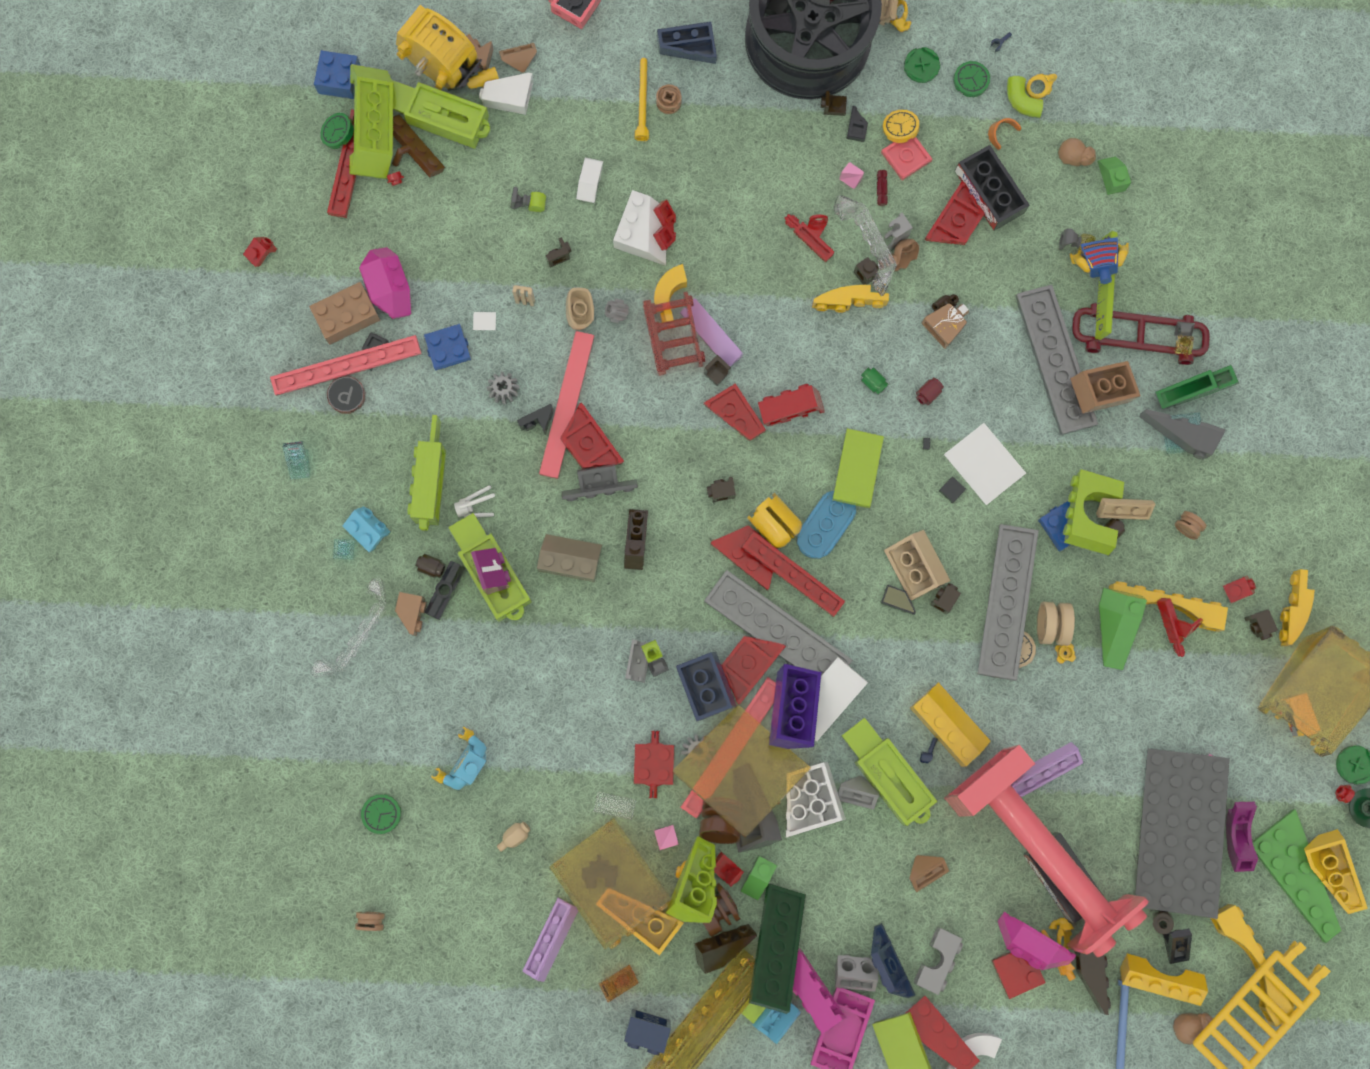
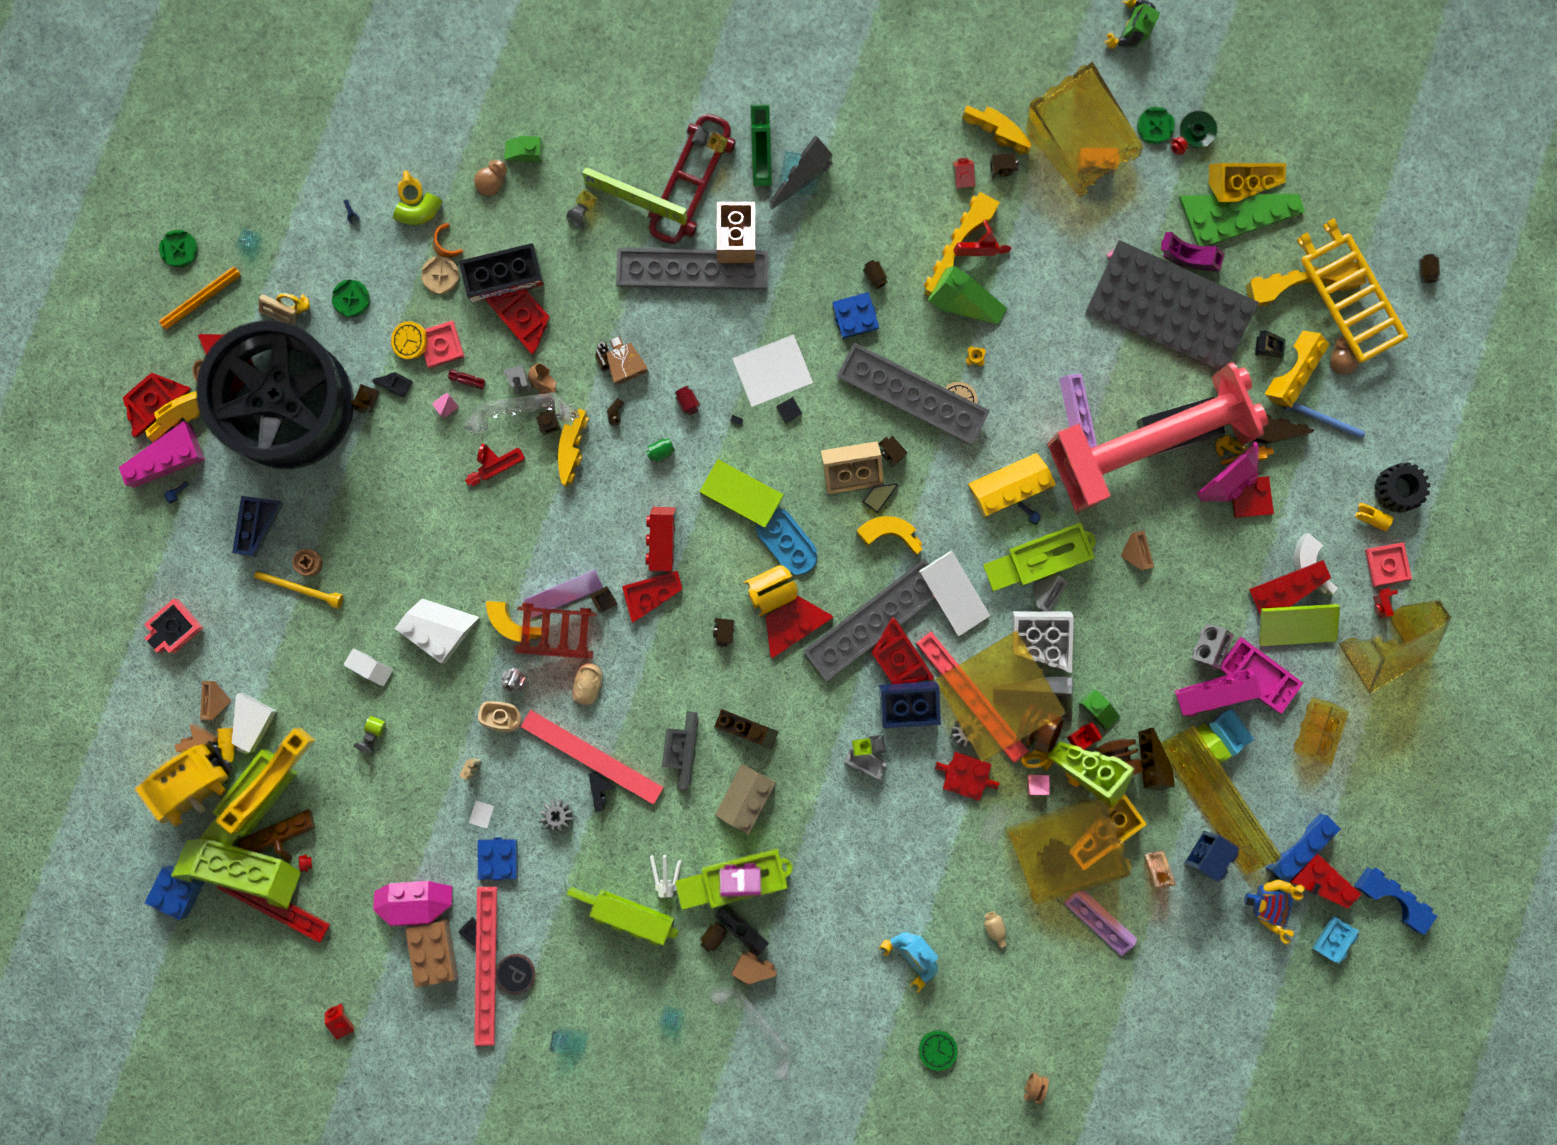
camera: 70 degrees left, 5 degrees up
(337, 130) = (235, 909): green tile -> none
(366, 528) = (656, 990): medium azure bracket -> none
(485, 128) = (251, 799): none -> yellow arch
(559, 256) = (438, 722): dark brown bracket -> none
(588, 441) = (636, 747): red wing -> none
(633, 380) = (587, 684): none -> tan piece
(665, 234) = (431, 601): red tile -> none
(695, 827) = (1036, 754): none -> yellow piece
(777, 949) = (1172, 713): dark green plate -> none
(793, 574) = (826, 588): red plate -> none
(795, 707) = (956, 627): dark purple slope -> none
(871, 612) = (890, 526): none -> yellow arch
(888, 964) = (1213, 614): dark blue wing -> none
(894, 328) = (613, 412): none -> dark brown arm
(934, 977) = (1236, 576): light grey arch -> none
(970, 136) = (440, 275): none -> tan tile
(971, 79) = (381, 254): green tile -> none
(1055, 623) = (947, 356): tan wheel -> none
(1079, 528) = (867, 303): lime arch -> none
(1101, 258) = (608, 192): torso -> none
(1125, 509) = (858, 253): tan tile -> none
(1163, 916) = (1243, 347): dark brown brick -> none
(1190, 525) = (891, 198): medium nougat wheel -> none

